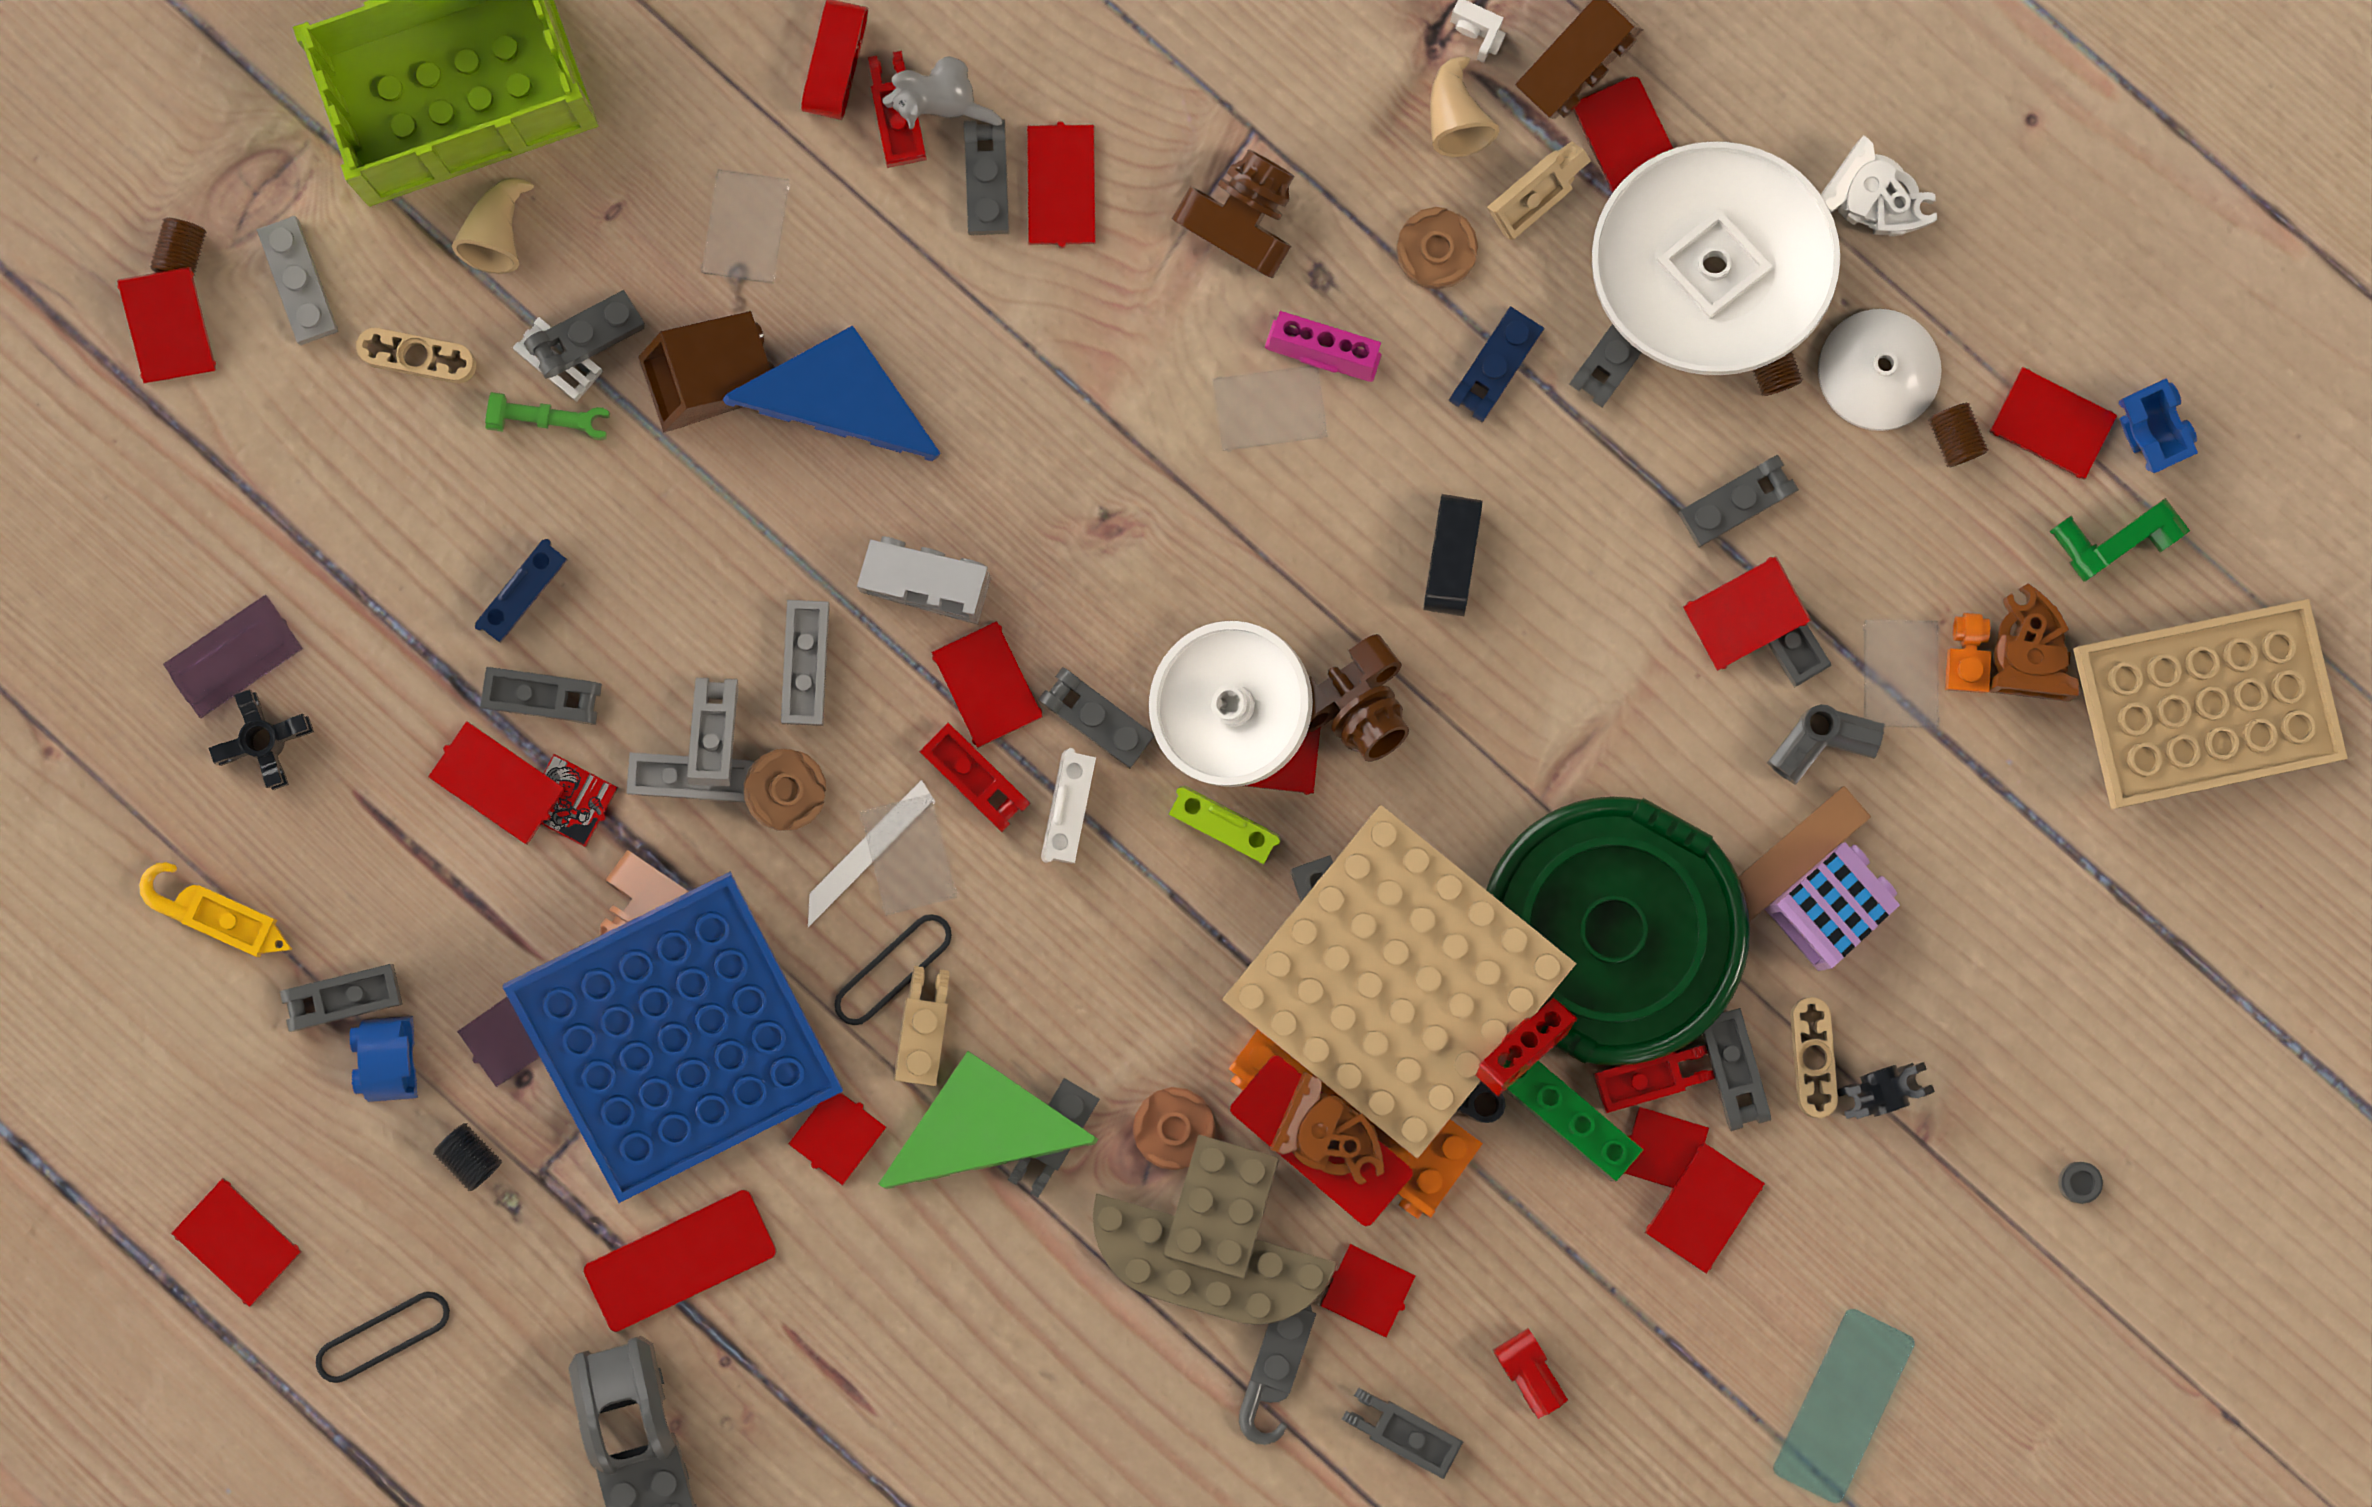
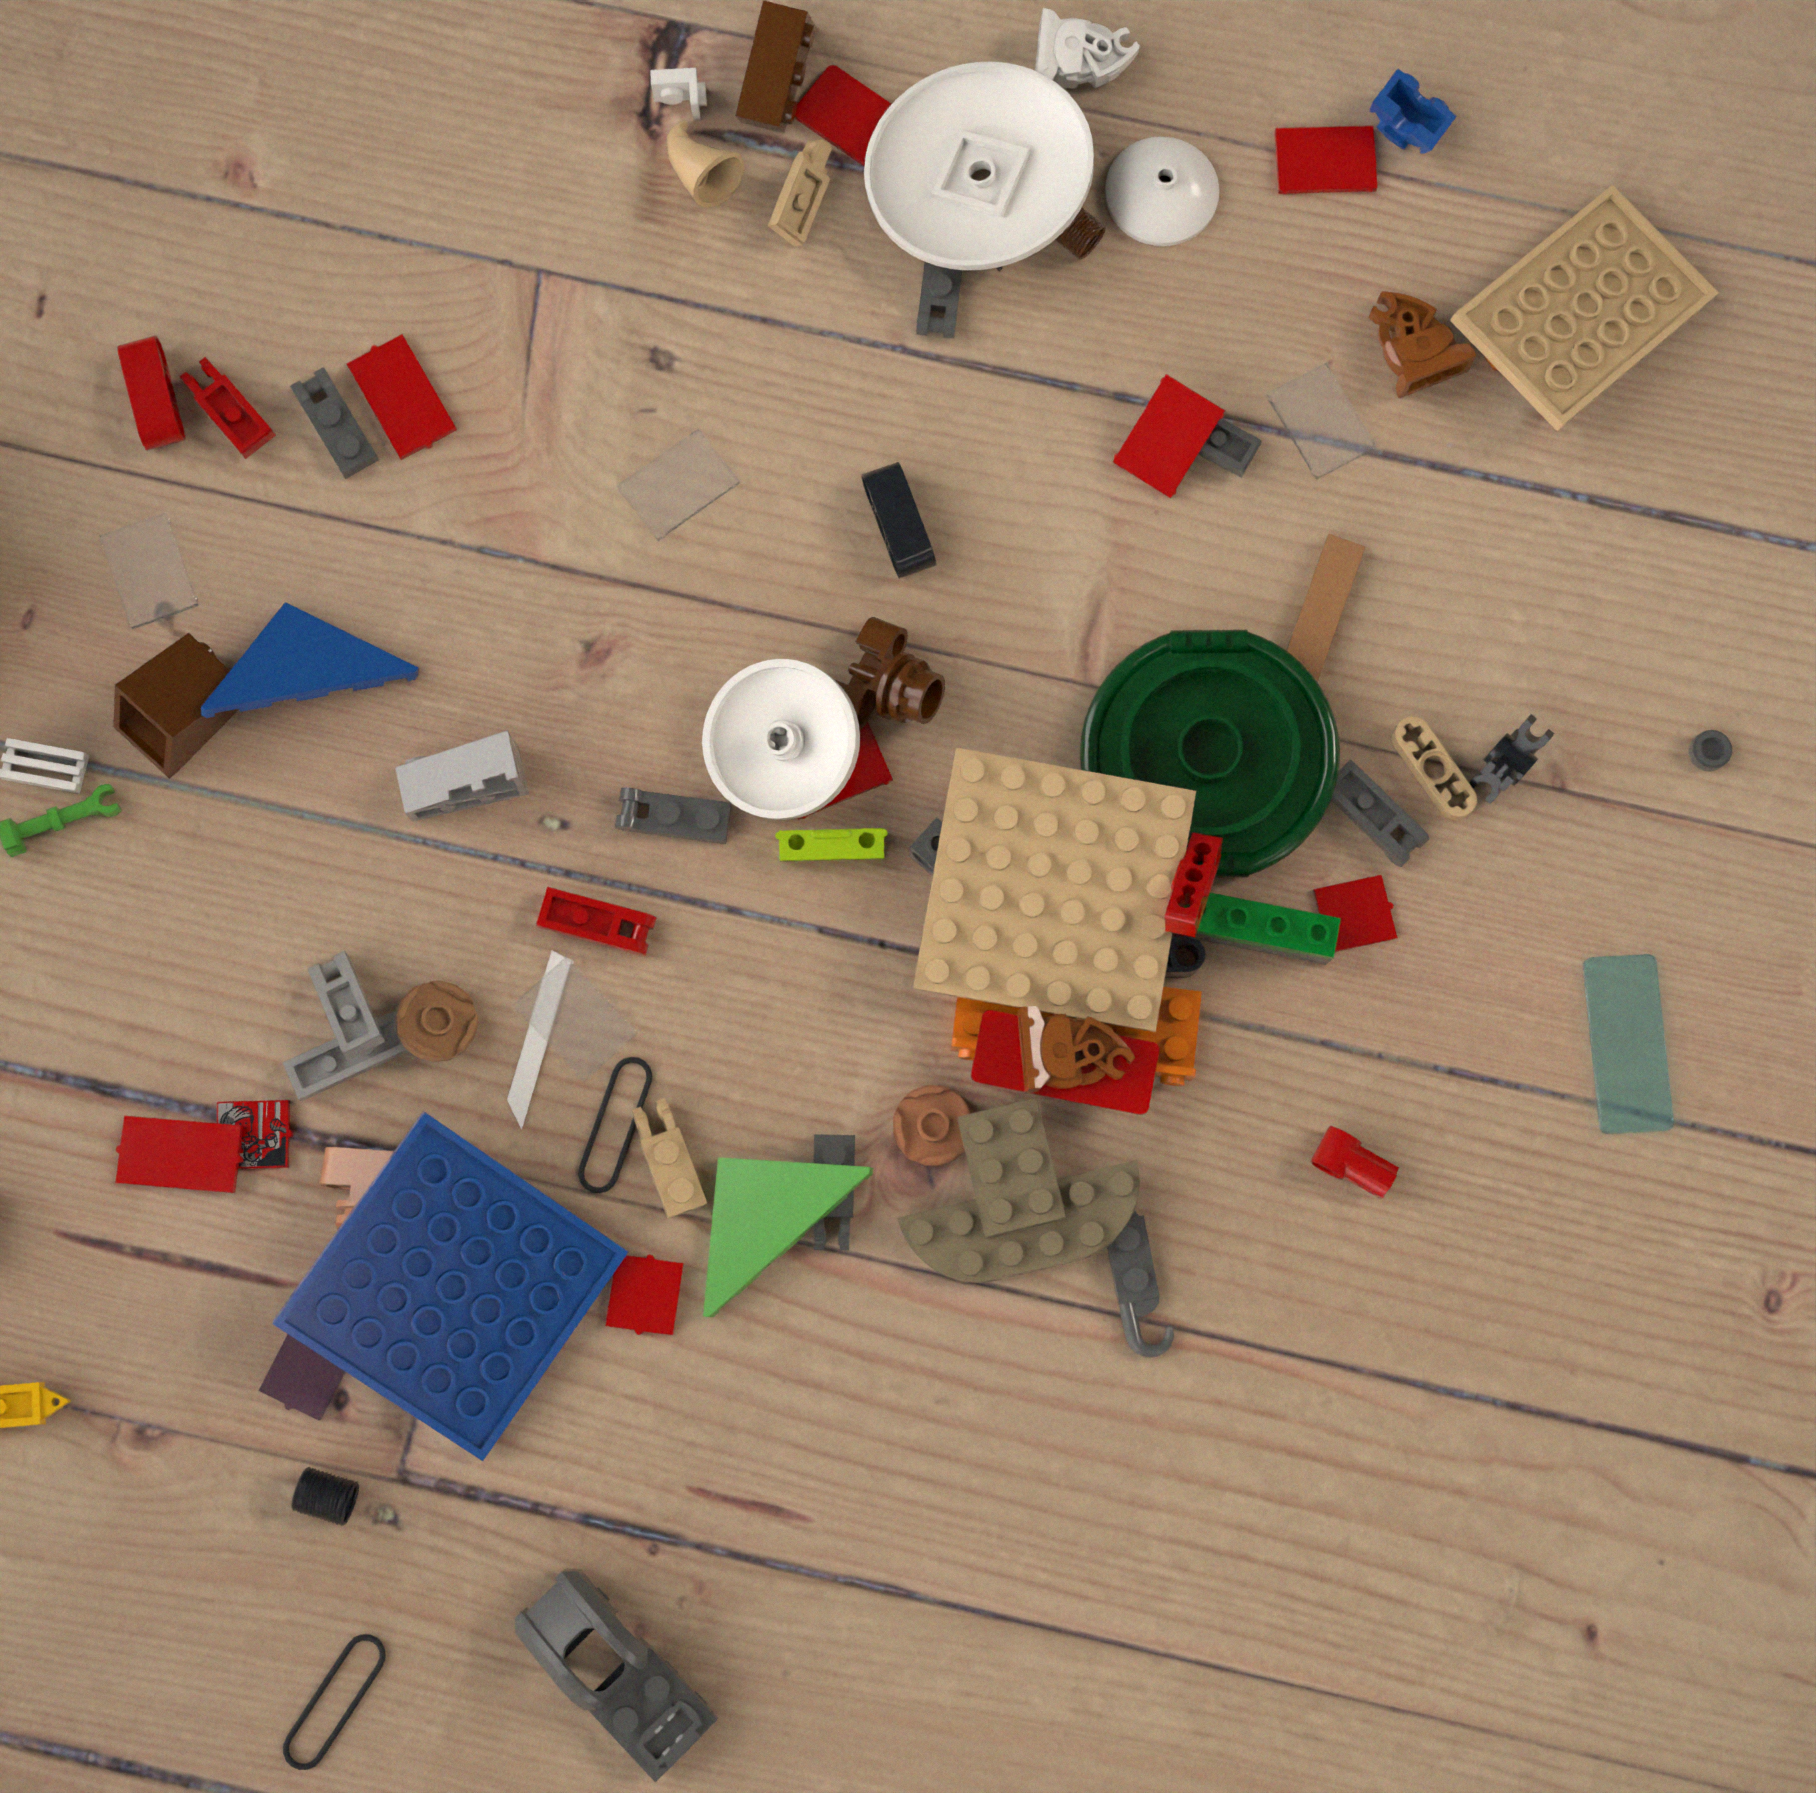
camera: 30 degrees left, 5 degrees down
(236, 1242) = (156, 1691): red piece -> none
(342, 997) = (138, 1417): dark grey plate -> none
(384, 1059) = (205, 1452): blue cylinder -> none
(521, 591) = (113, 977): dark blue piece -> none
(539, 695) = (177, 1058): dark grey plate -> none
(585, 334) = (55, 730): dark grey plate -> none
(679, 1260) = (564, 1482): red piece -> none
(805, 662) = (396, 904): light grey plate -> none
(941, 94) = (257, 369): light grey animal -> none
(987, 684) = (564, 839): red piece -> none
(1068, 807) = (690, 902): white piece -> none
(1234, 227) = (567, 311): reddish brown beam -> none
(1308, 349) = (695, 408): dark pink piece -> none
(1368, 1290) = (1175, 1171): red piece -> none
(1407, 1435) = (1280, 1275): dark grey hinge -> none
(1437, 248) = (745, 283): medium nougat tile -> none
(1497, 363) = (847, 348): dark blue plate -> none
(1648, 1080) = (1309, 862): red hinge -> none
(1704, 1207) = (1416, 943): red piece -> none
(1736, 502) = (1107, 355): dark grey plate -> none
(1834, 906) = (1378, 635): slope -> none
(1844, 733) = (1303, 490): dark grey piece -> none
(1958, 434) = (1256, 205): reddish brown piece -> none
(1967, 667) = (1371, 385): orange plate -> none
(2158, 523) = (1458, 191): green beam -> none

